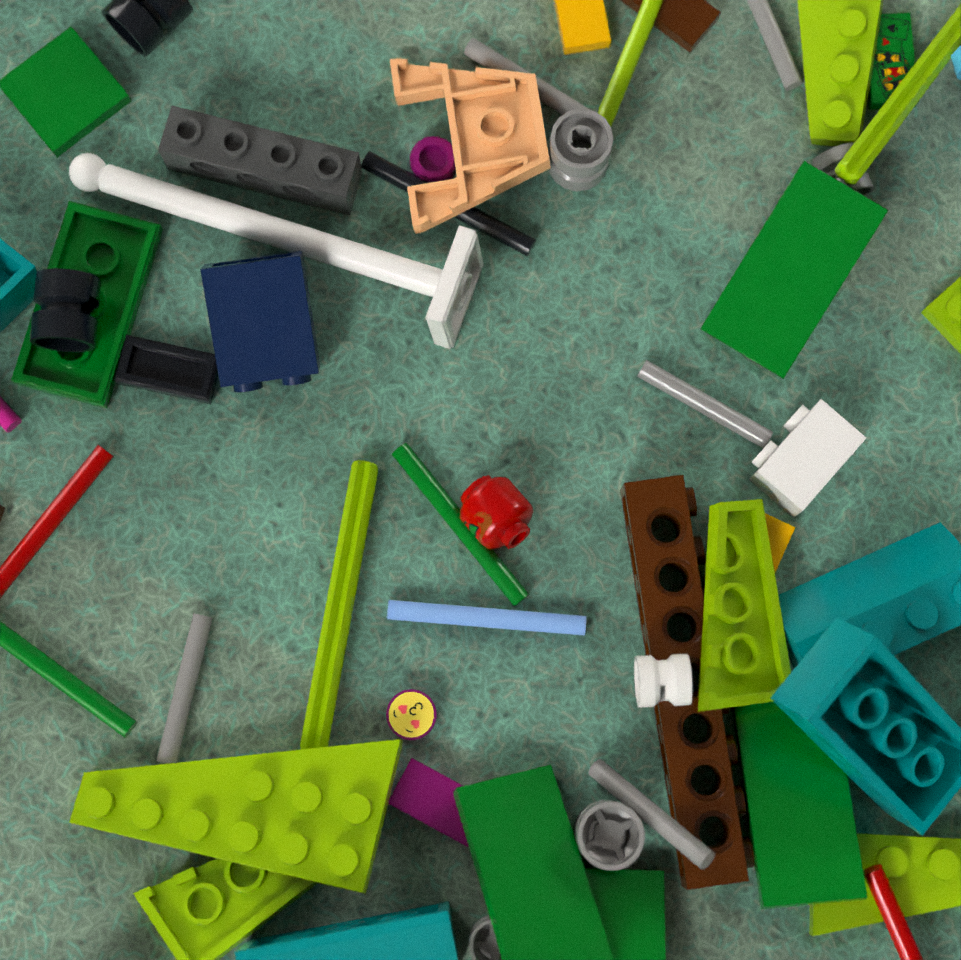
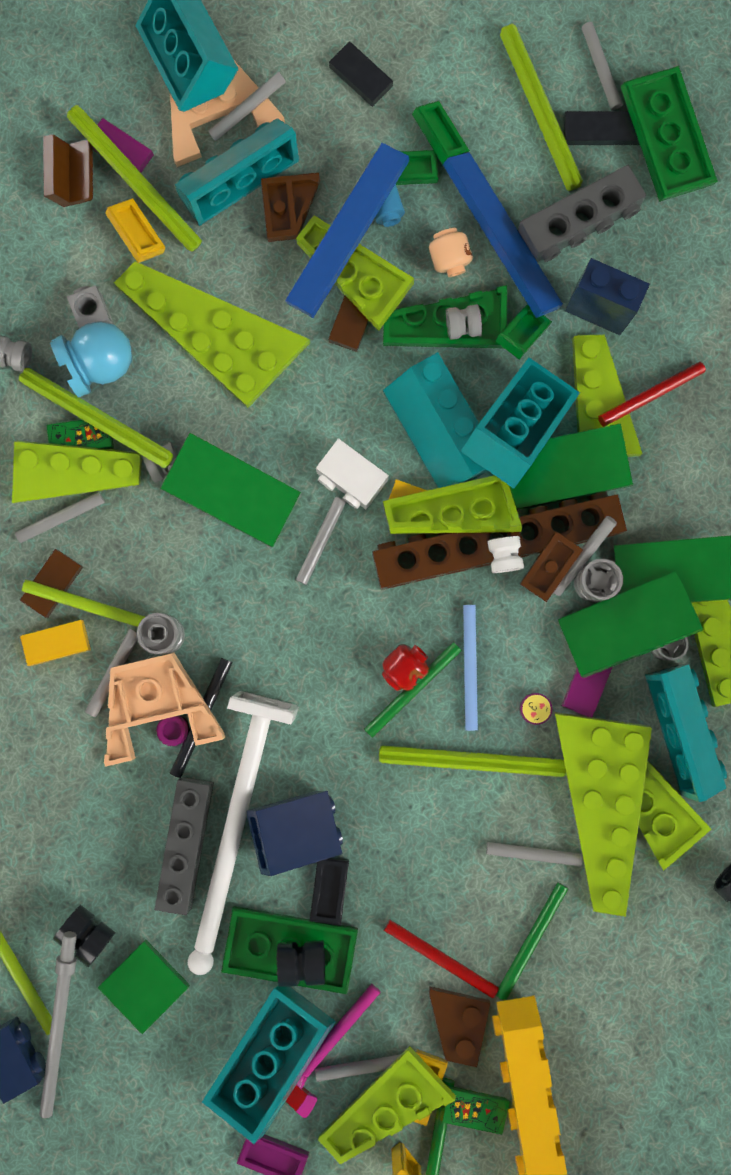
camera: 95 degrees left, 5 degrees up
(638, 755) = (551, 566): none -> reddish brown panel

